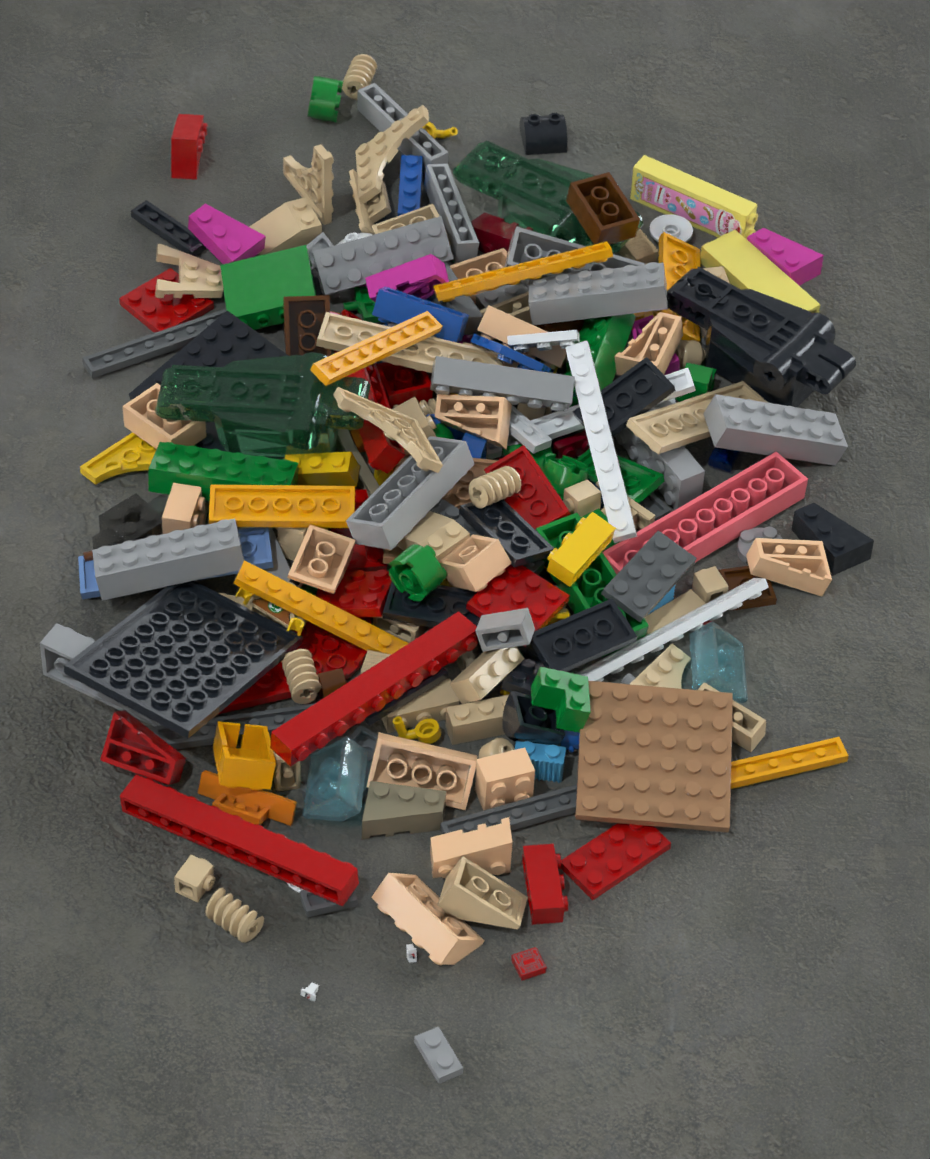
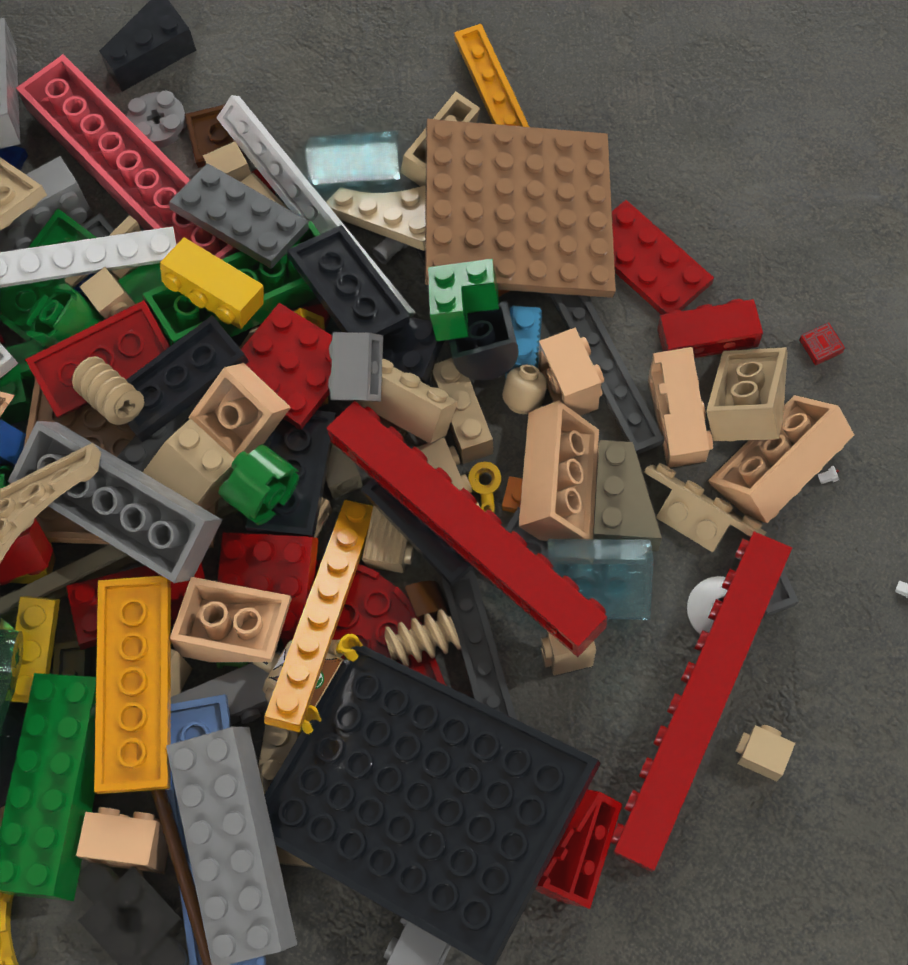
camera: 85 degrees left, 20 degrees up
(233, 917) = (820, 692): tan piece -> none
(245, 766) = (577, 696): light orange piece -> none
(247, 803) = (633, 703): orange bracket -> none
(390, 856) = (697, 514): none -> tan bracket
(791, 563) = (197, 74): light nougat wedge -> none

